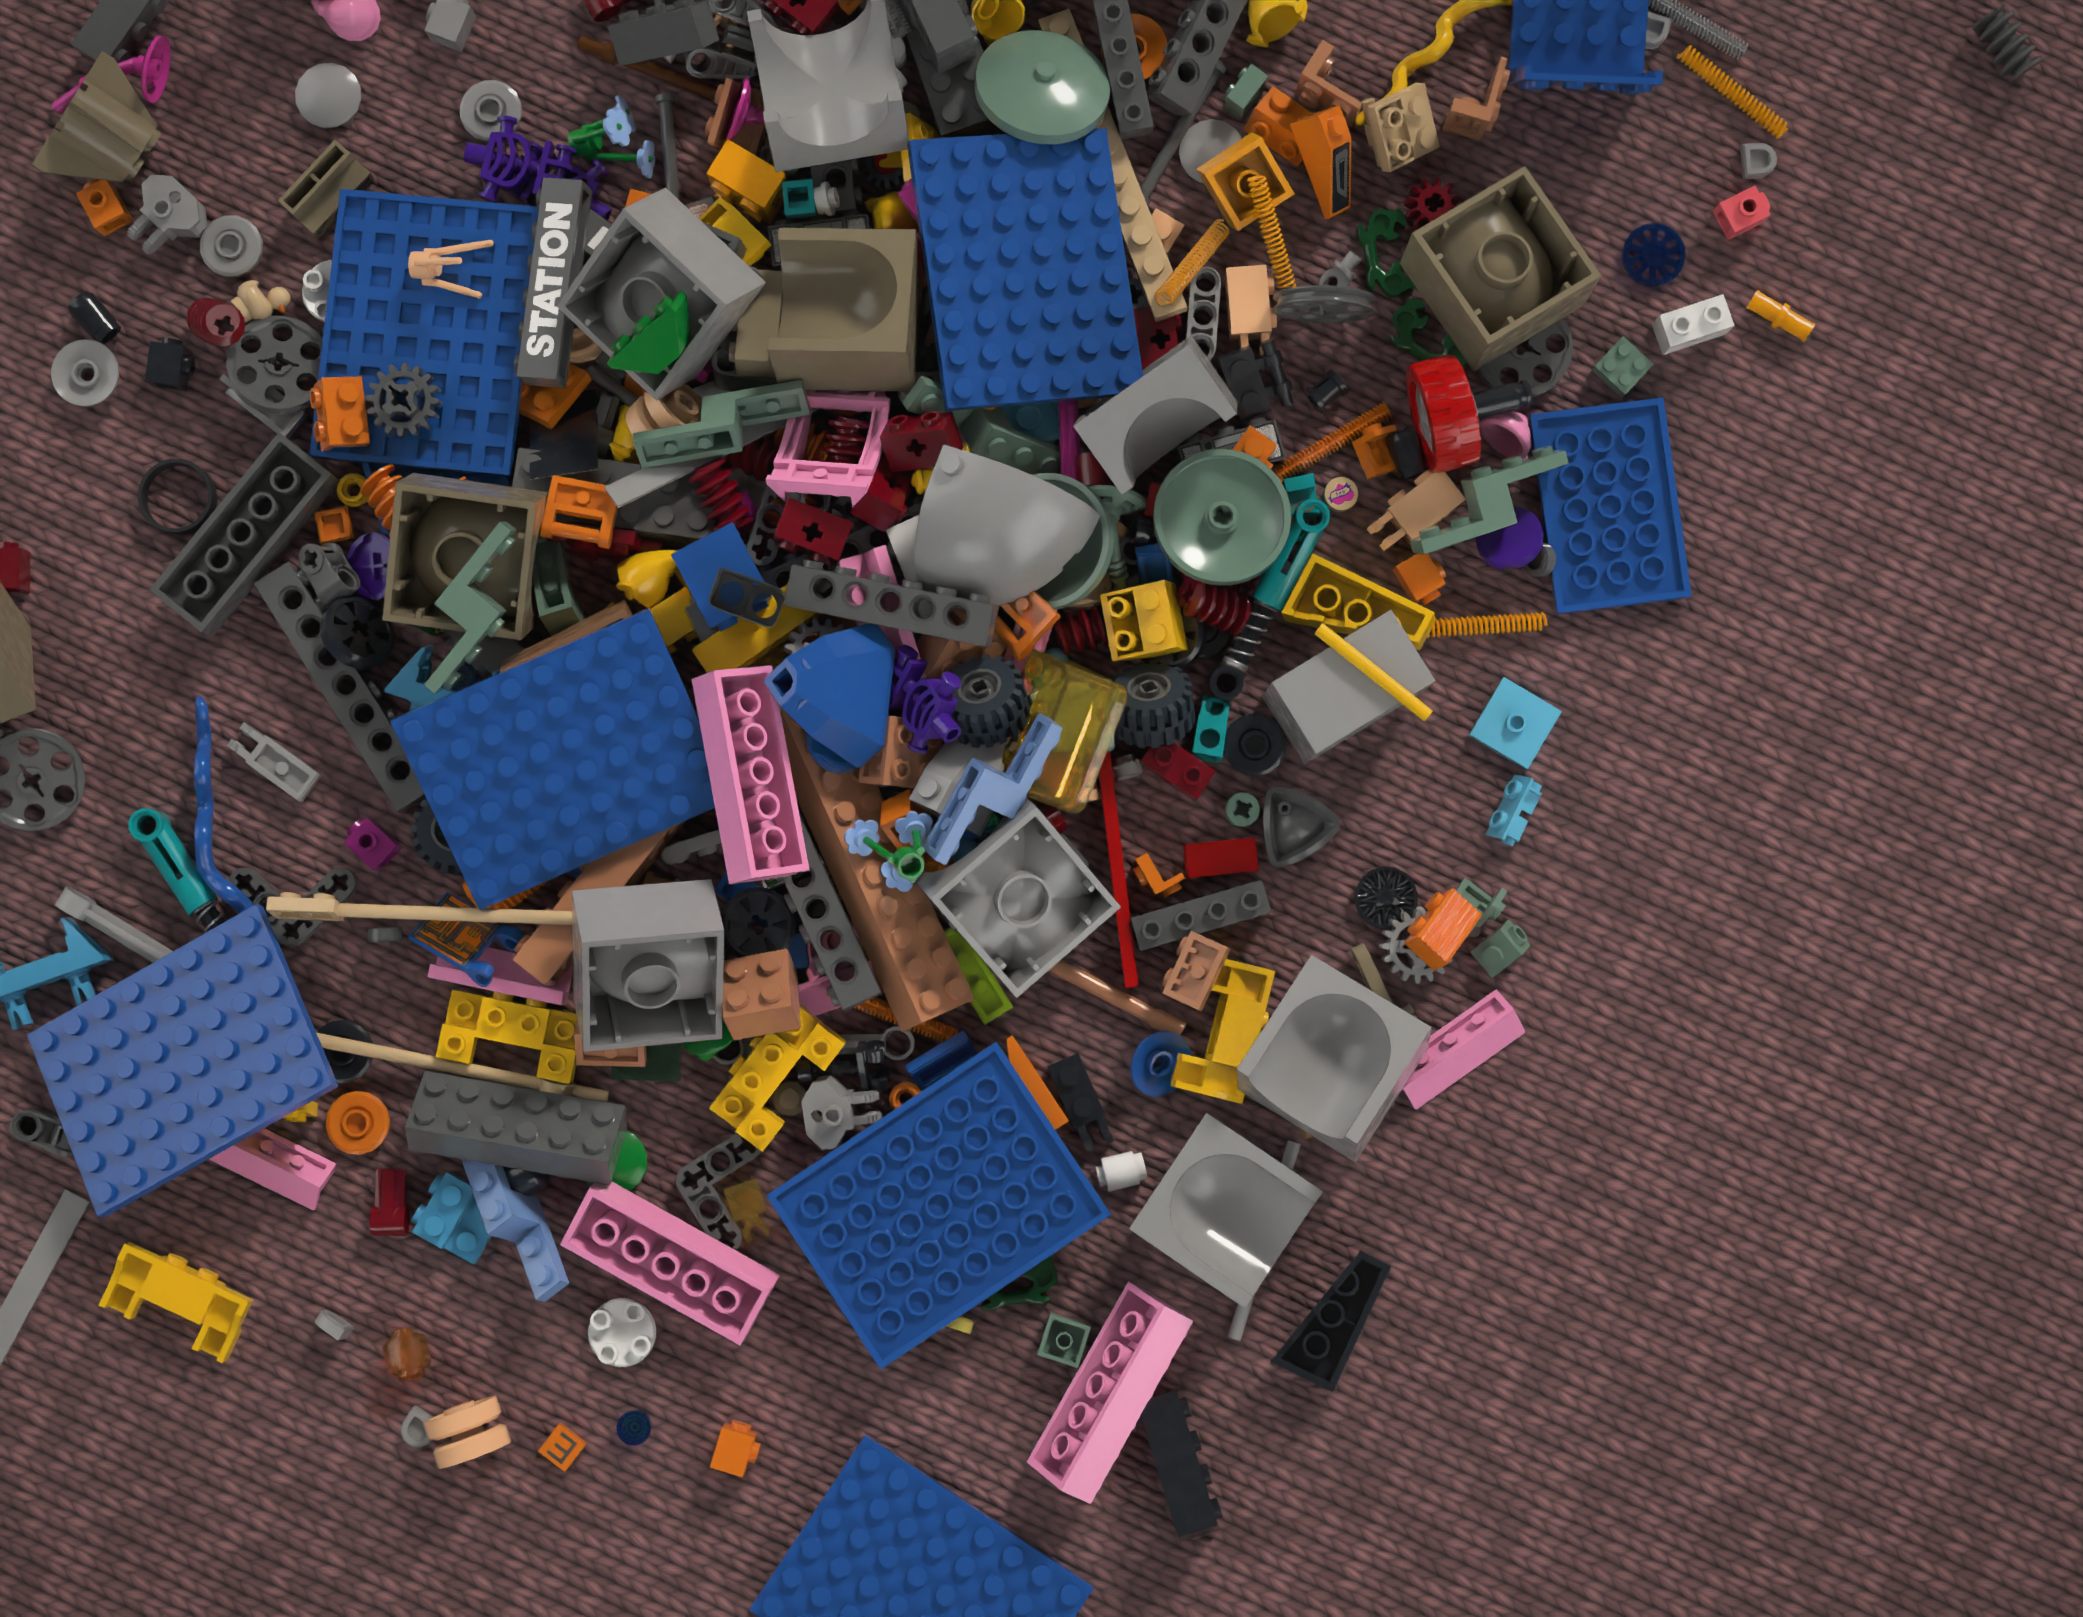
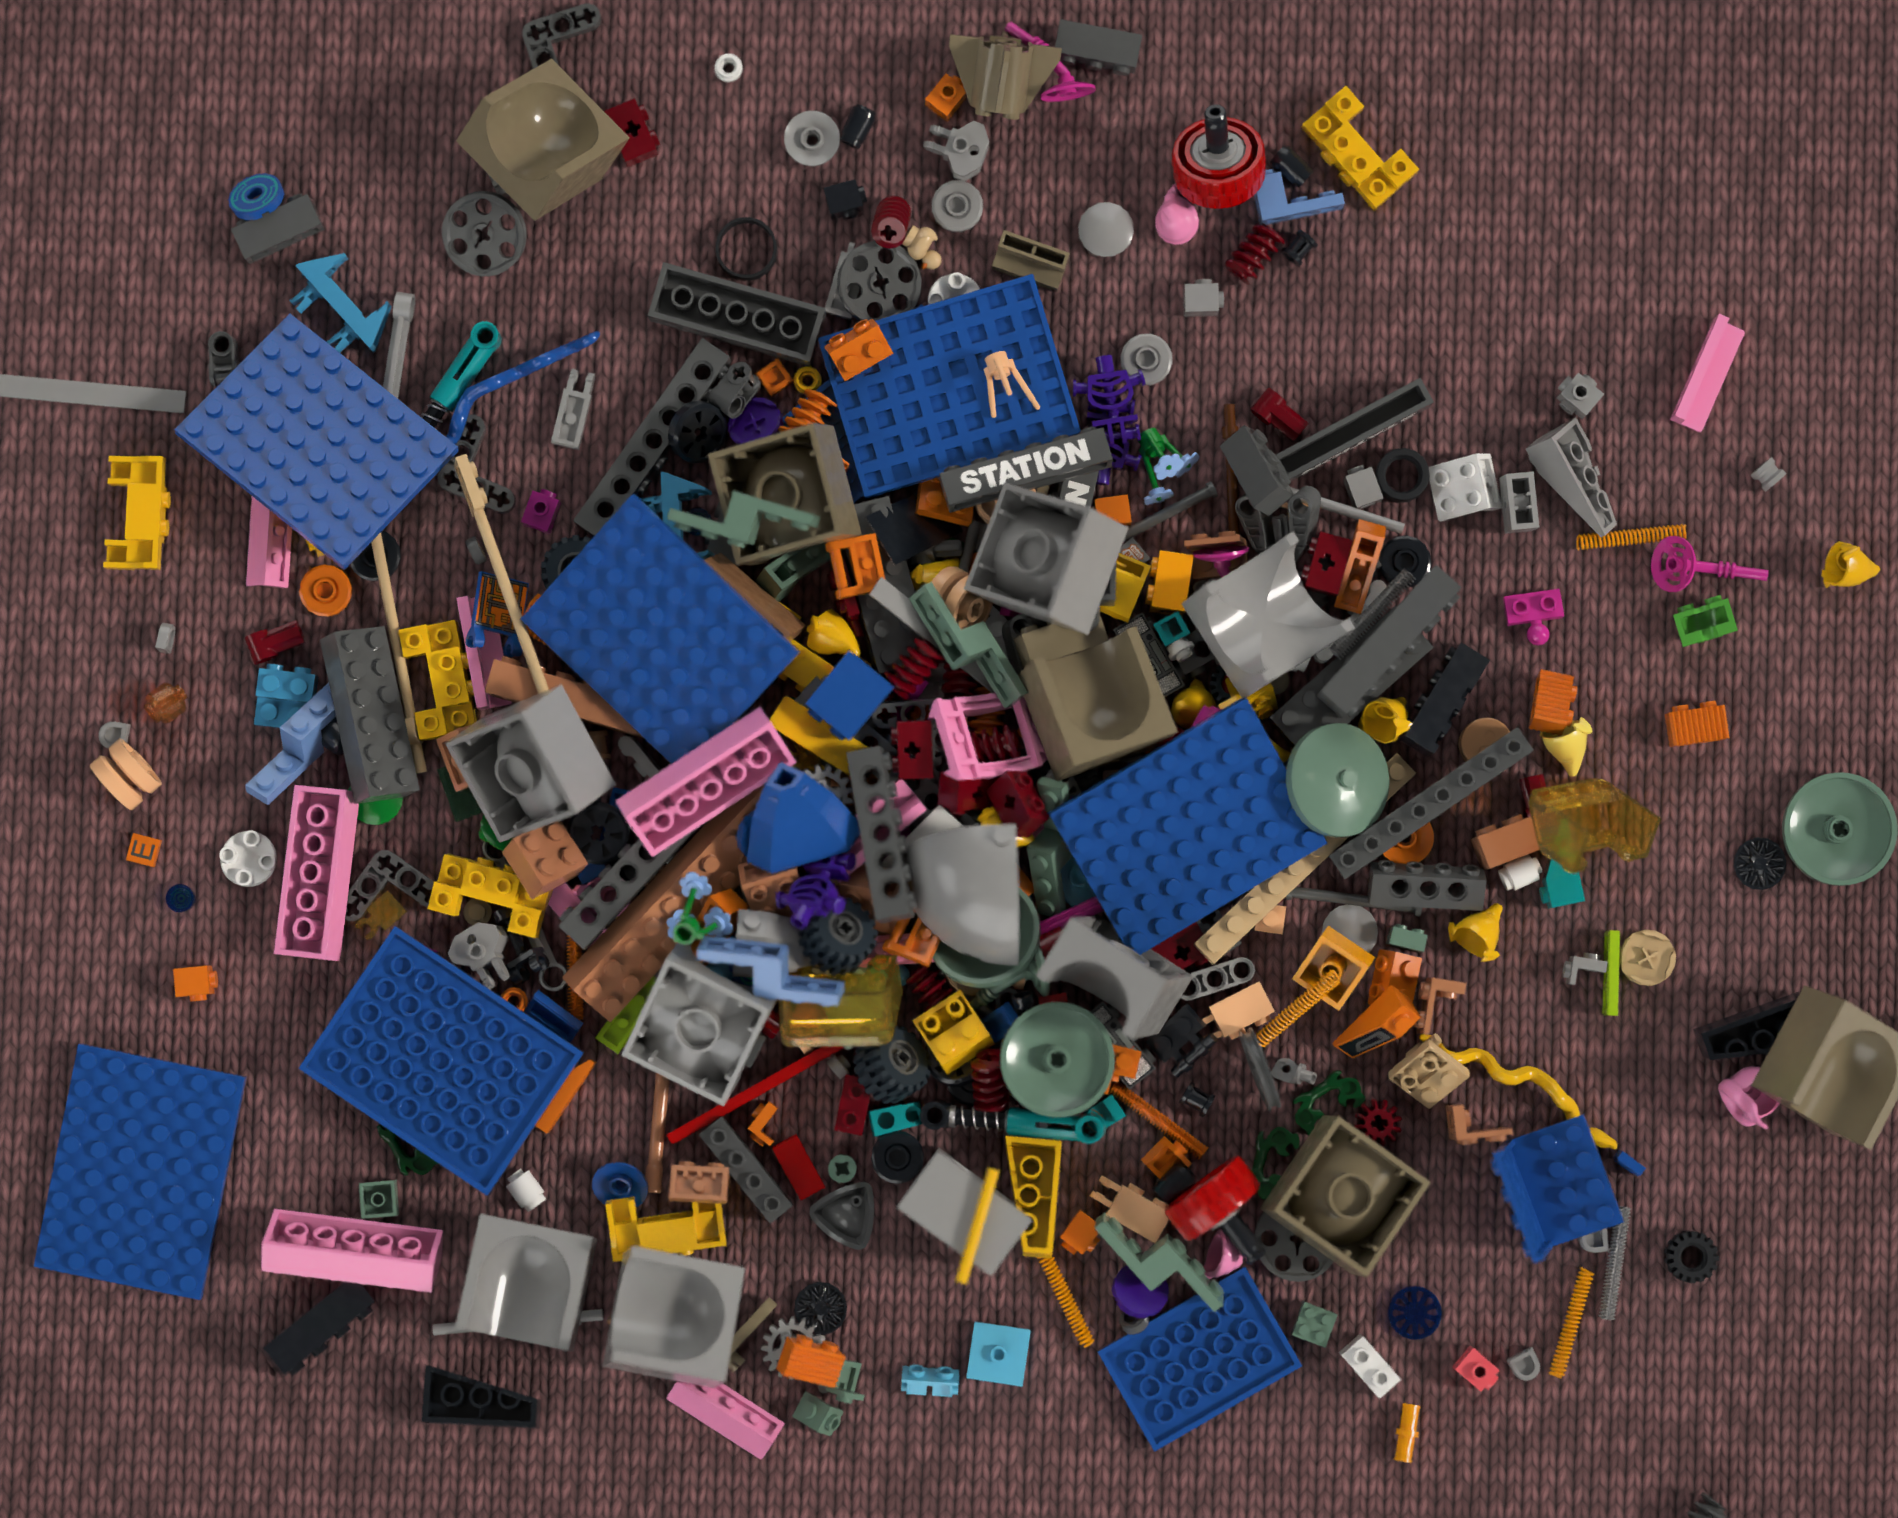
camera: 70 degrees right, 0 degrees up
(393, 408) = (898, 399): dark grey gear -> none
(655, 339) = (1004, 570): green slope -> none
(750, 594) = (832, 724): dark grey piece -> none
(962, 1324) = (358, 1116): light yellow tile -> none
(1079, 1098) = (568, 1134): black hinge -> none
(1193, 262) = (1251, 959): light orange piece -> none
(1340, 494) = (1121, 1144): tan tile -> none

